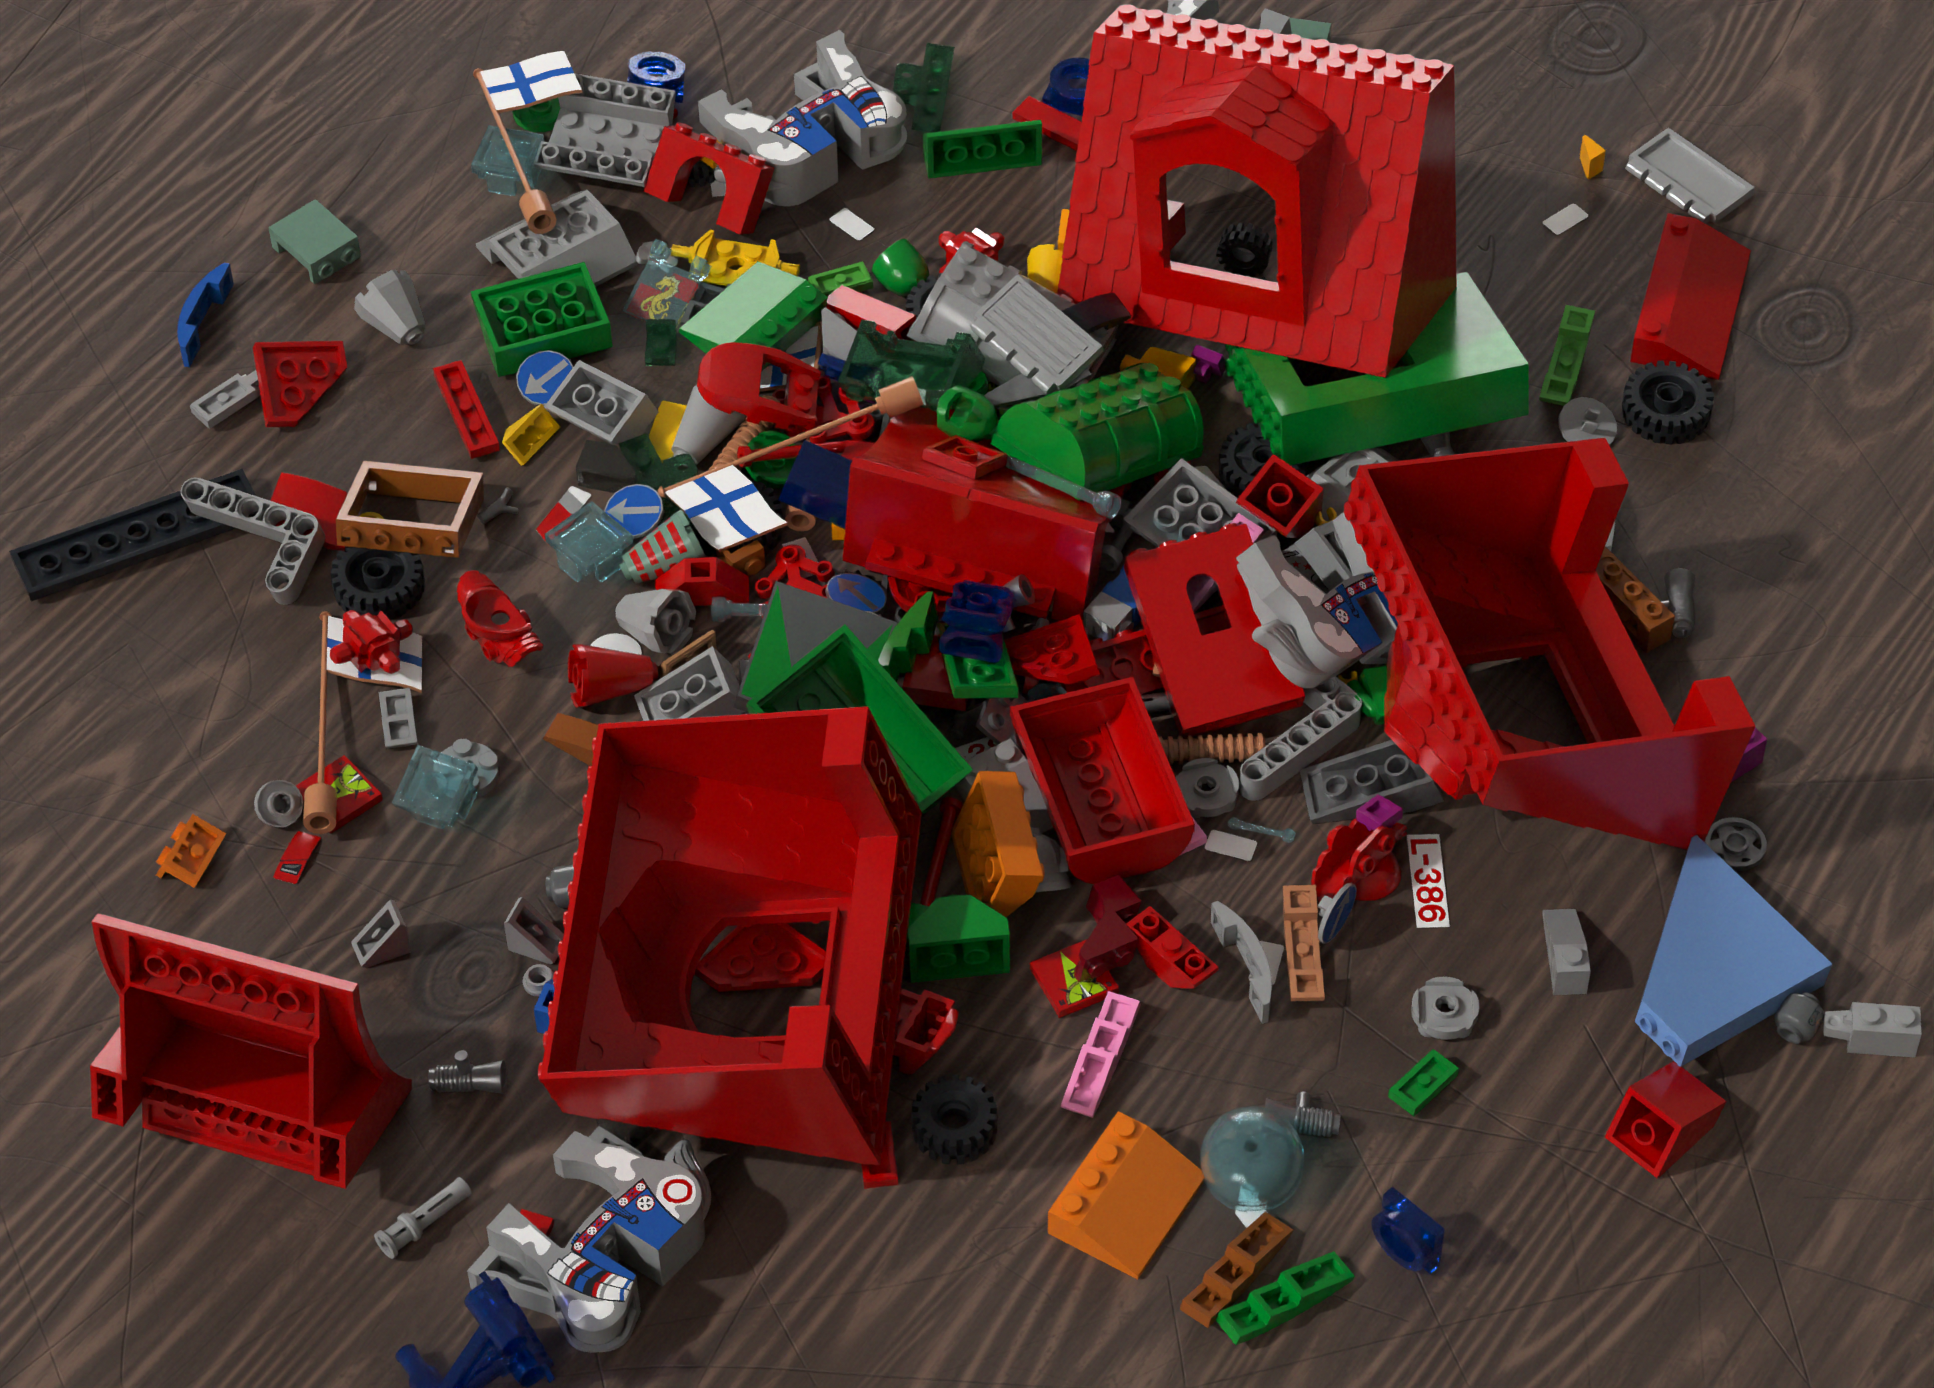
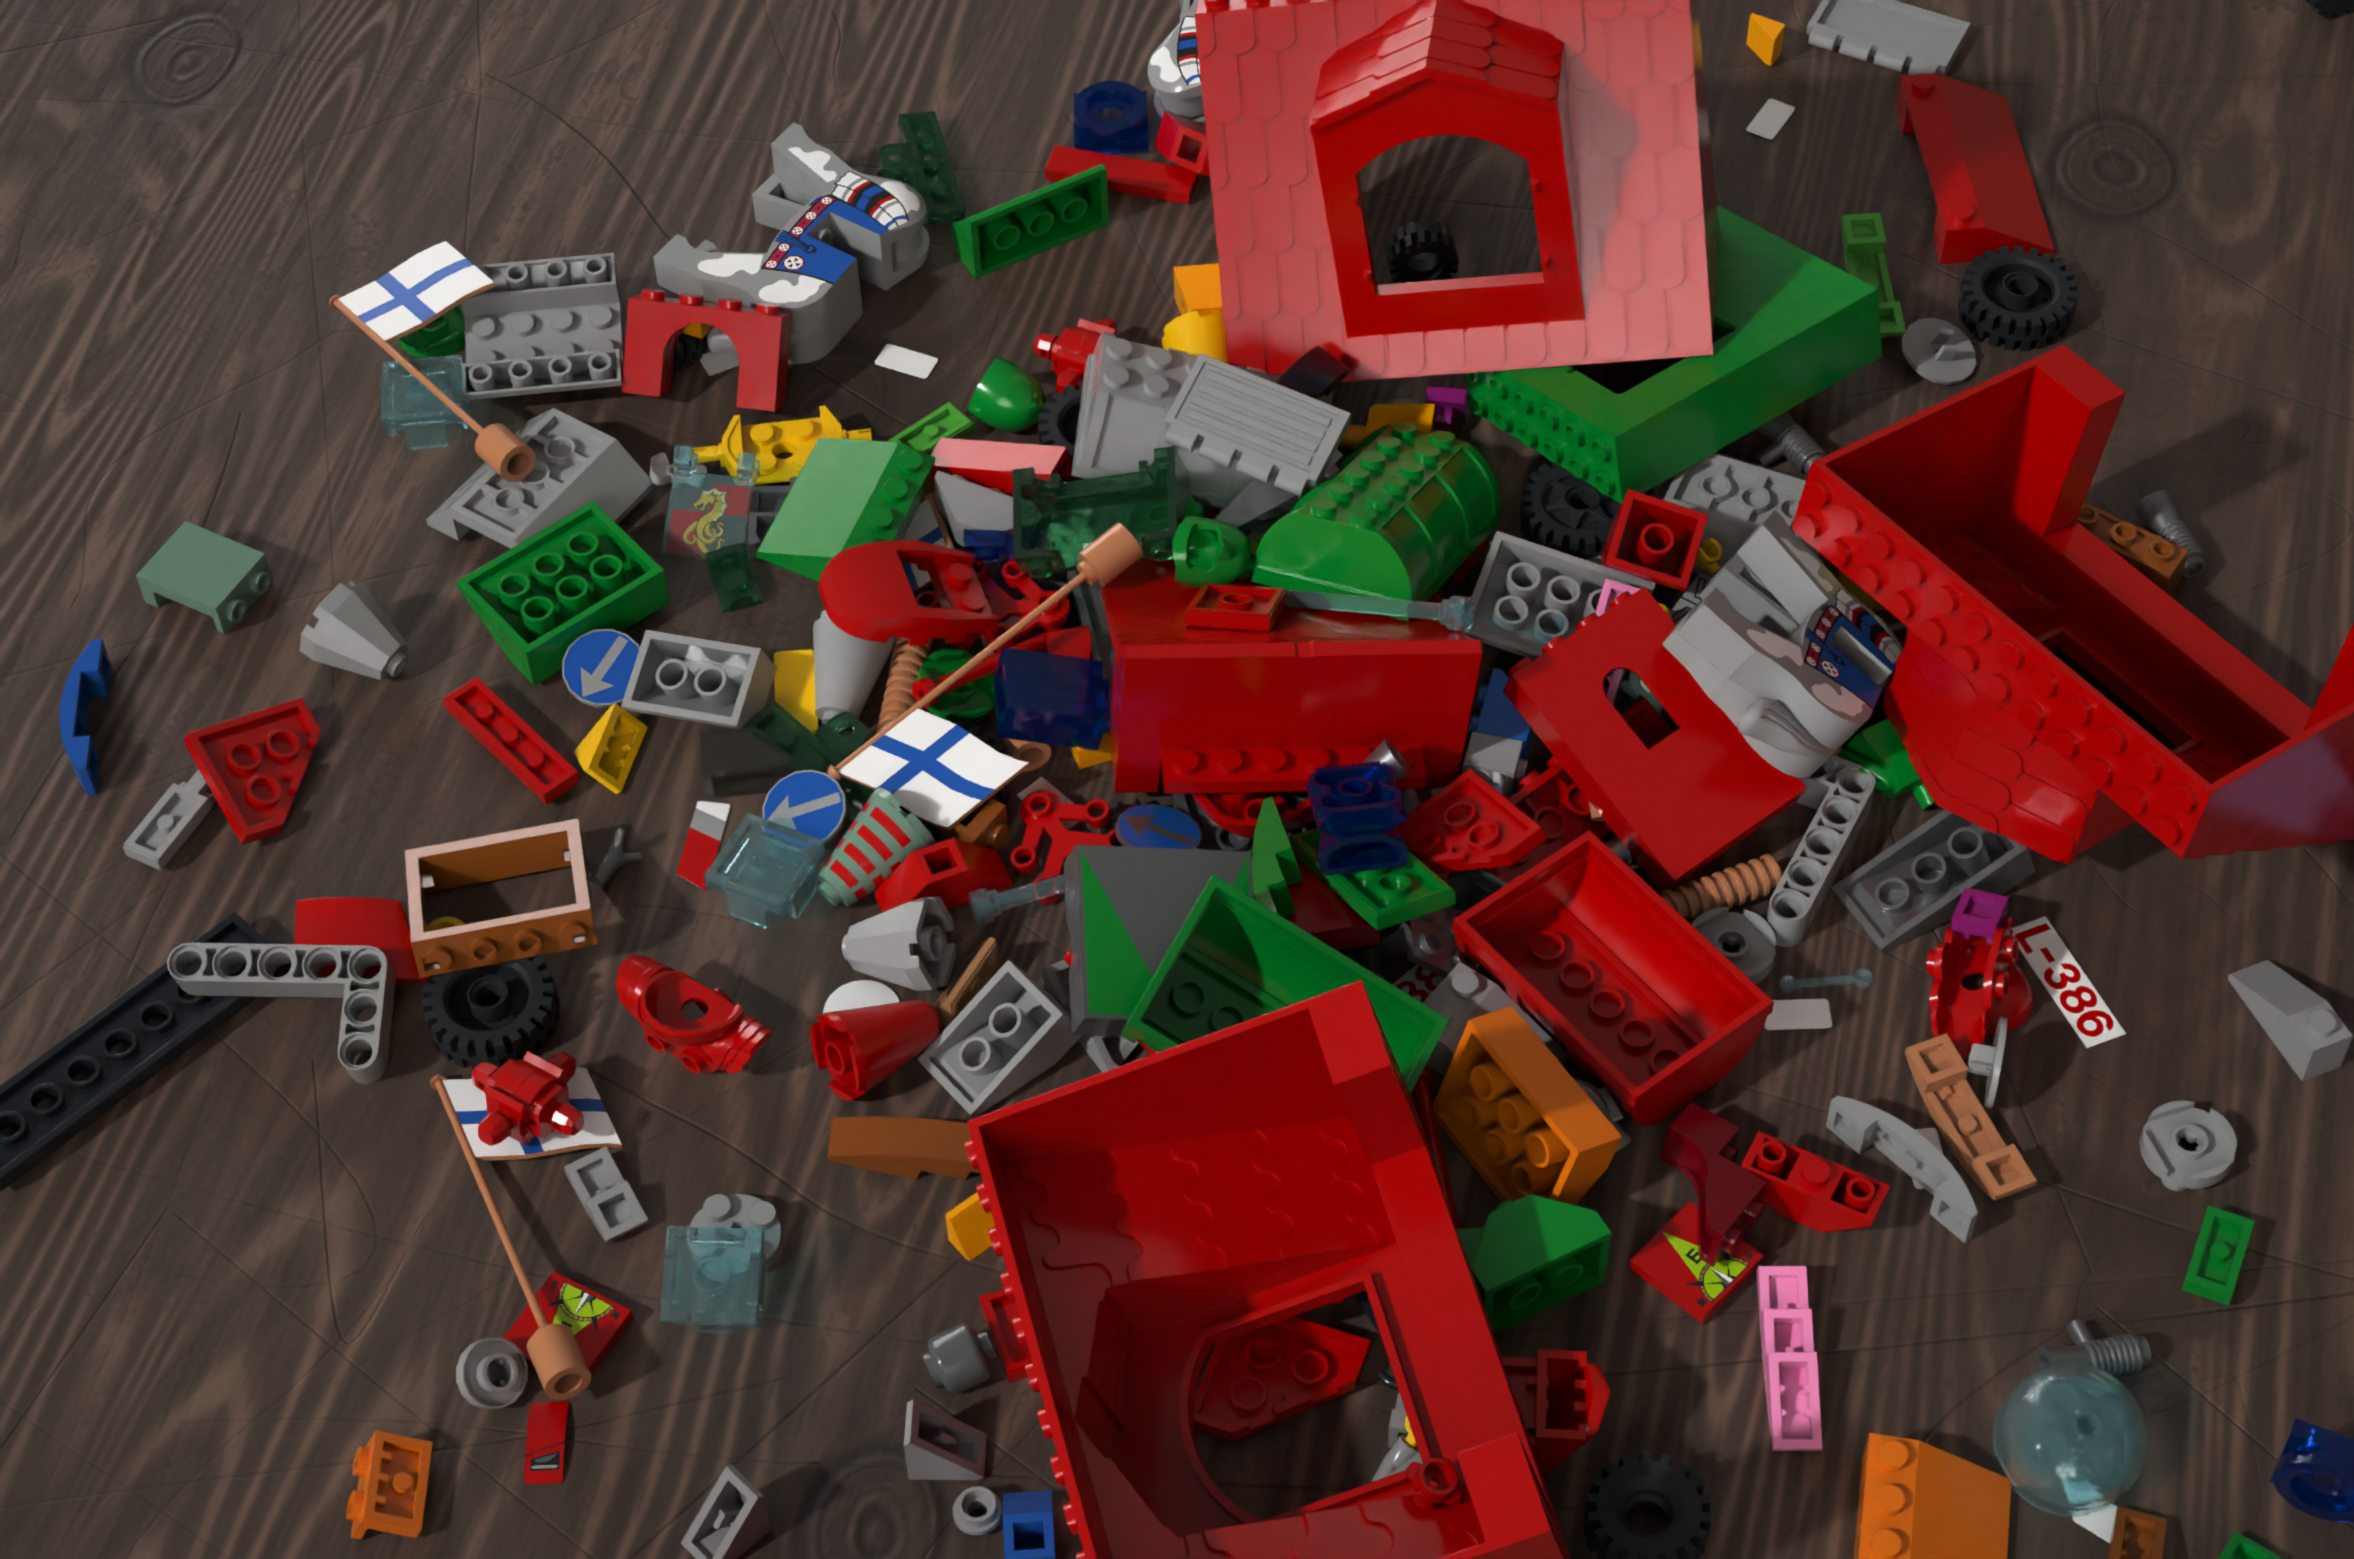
camera: 20 degrees left, 0 degrees up
(662, 63) = (585, 230): clear blue piece -> none

